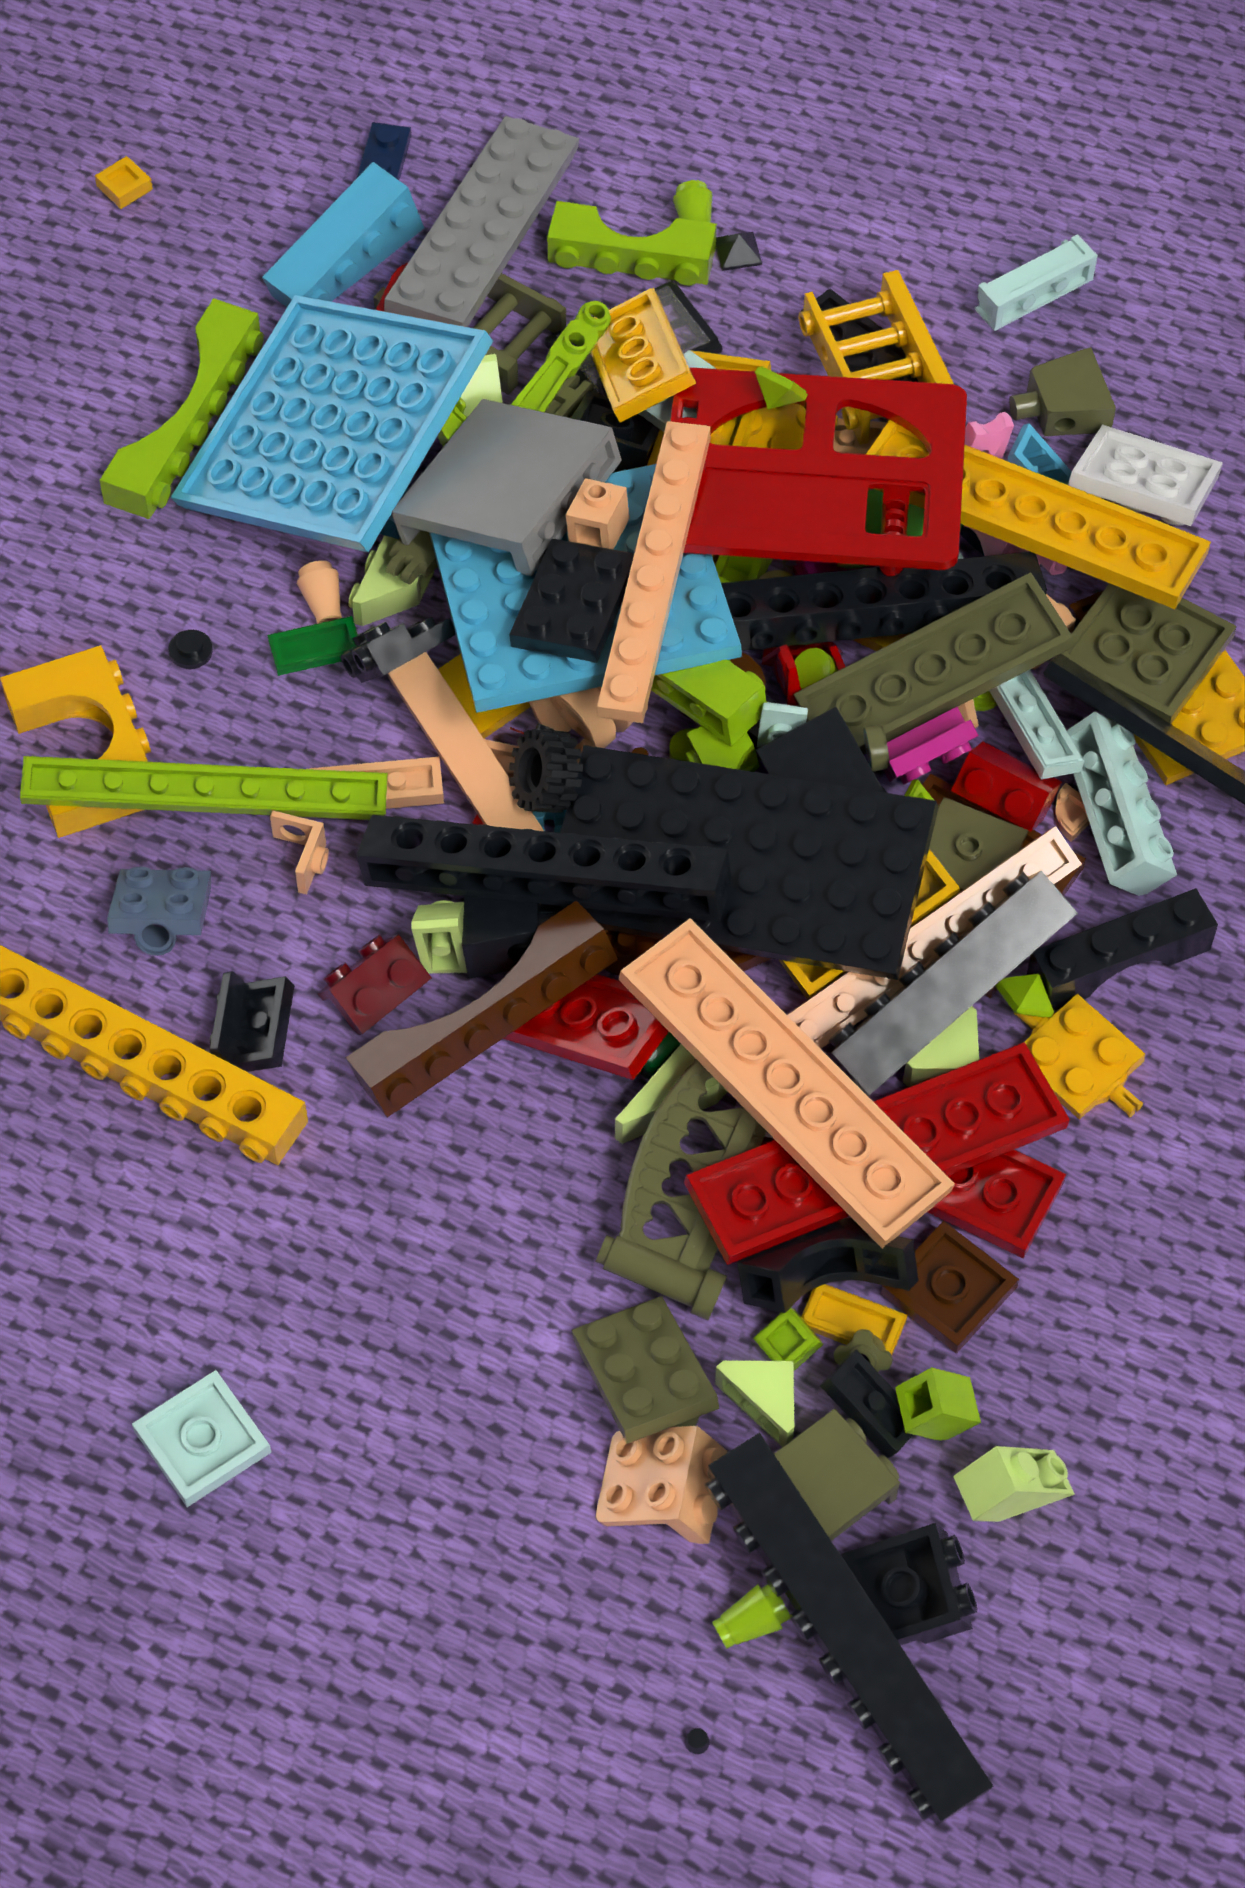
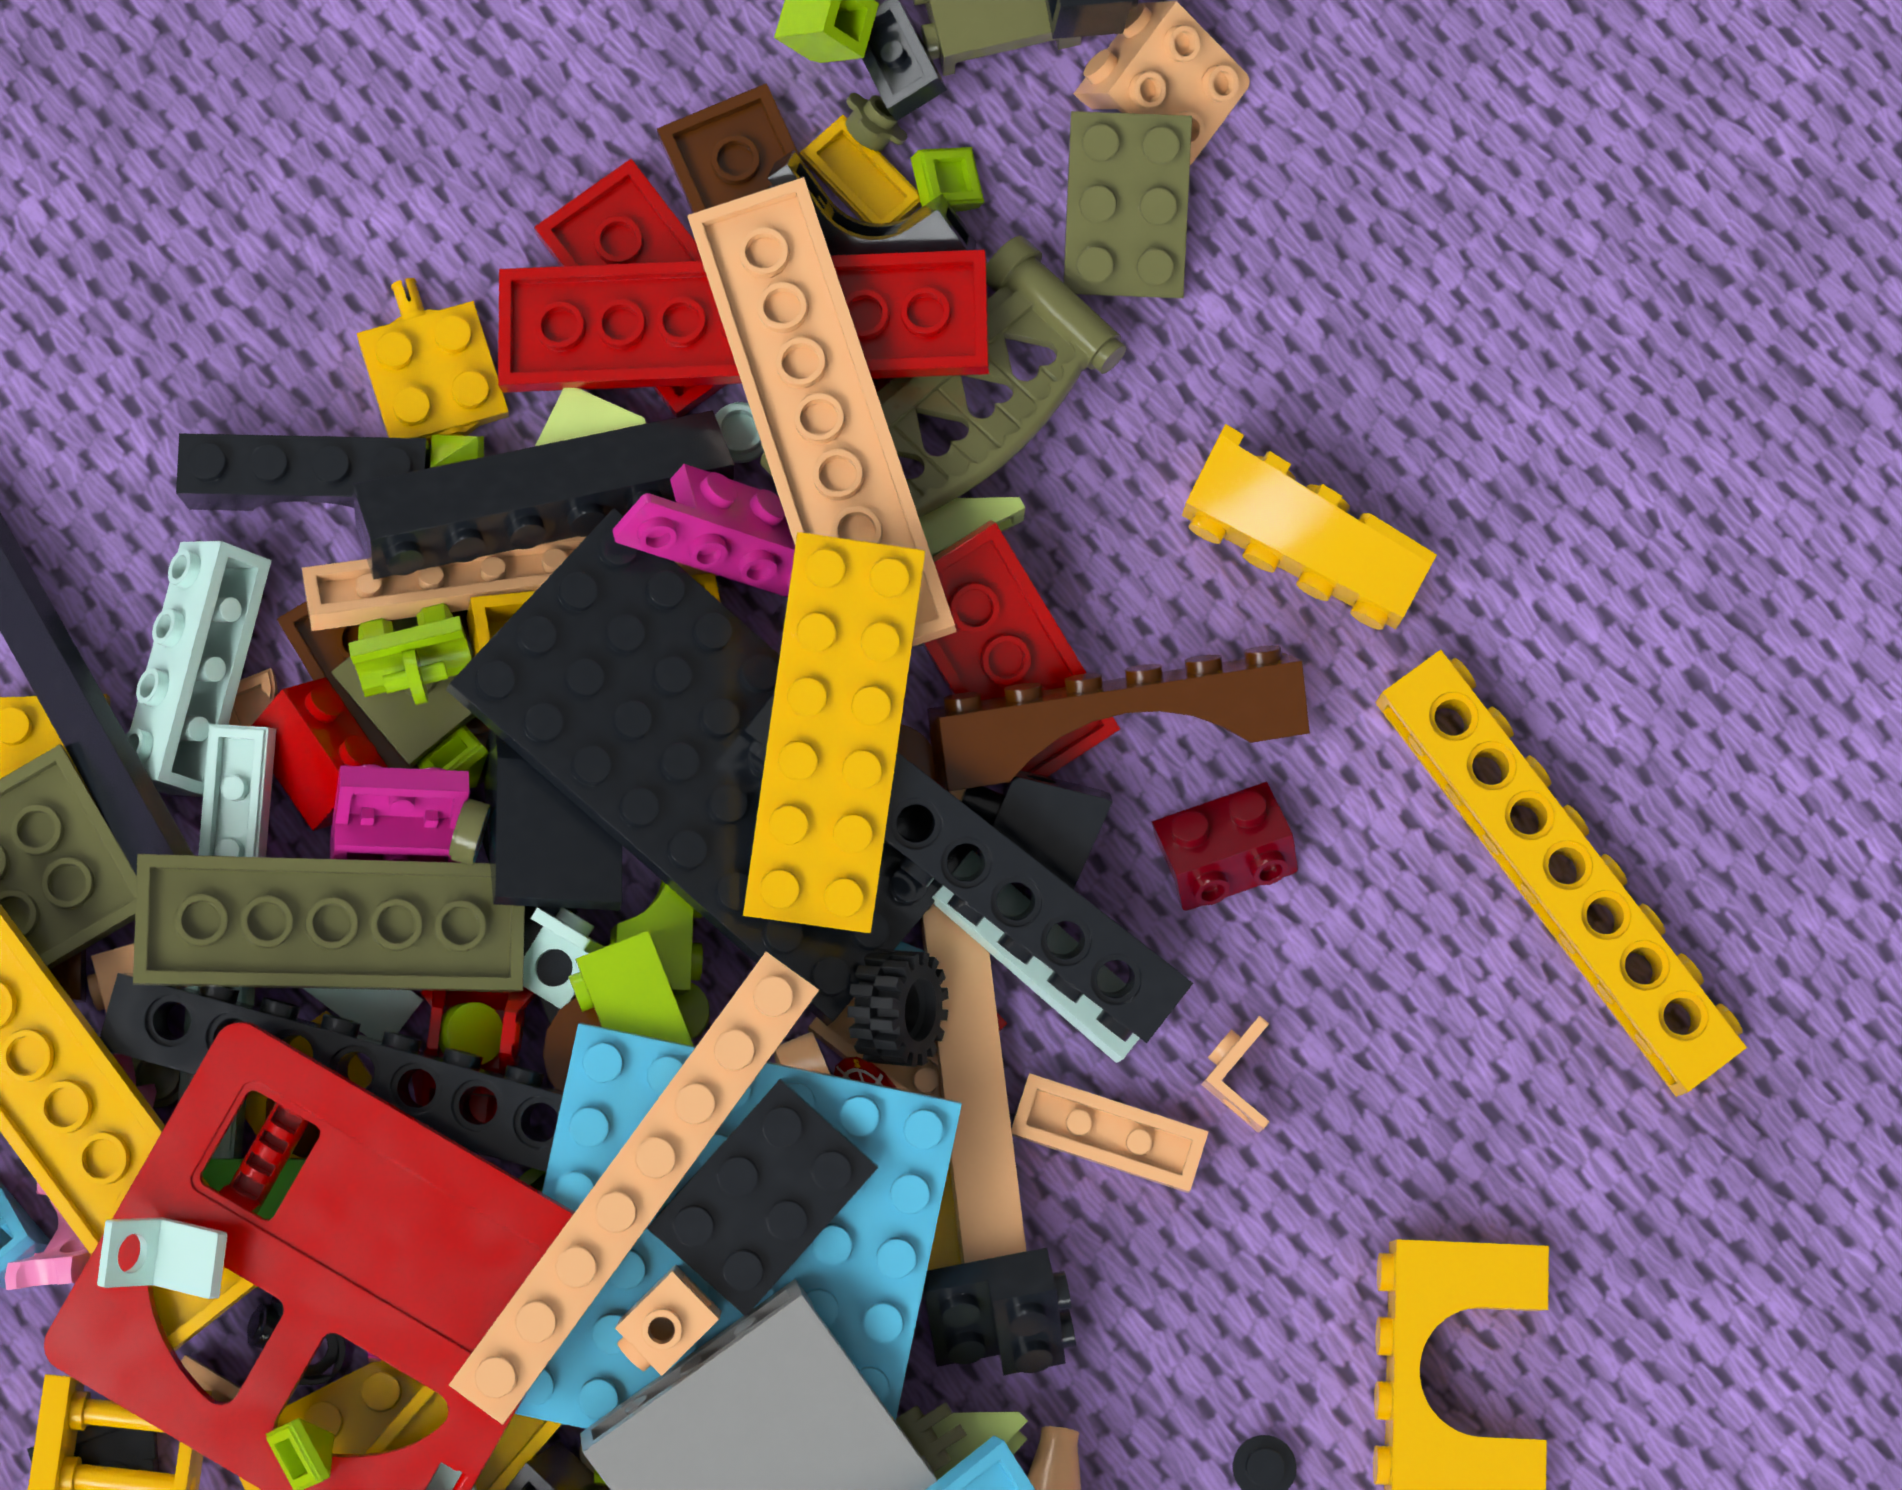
camera: 160 degrees left, 20 degrees up
(162, 898) = (1451, 1068): sand blue plate -> none
(201, 1438) = (1647, 350): light aqua plate -> none
(202, 788) = (1341, 1199): lime tile -> none
(252, 1021) = (1397, 849): black bracket -> none
(312, 645) = (1096, 1402): green tile -> none
(403, 1197) = (1305, 533): none -> yellow wedge
(439, 936) = (1122, 859): yellowish green slope -> none
(668, 870) = (834, 732): none -> yellow plate
(762, 1392) = (1005, 125): yellowish green slope -> none
(826, 1000) = (715, 528): none -> dark pink bracket
(919, 442) = (170, 1256): none -> light aqua bracket
(994, 832) = (411, 656): none -> lime hips

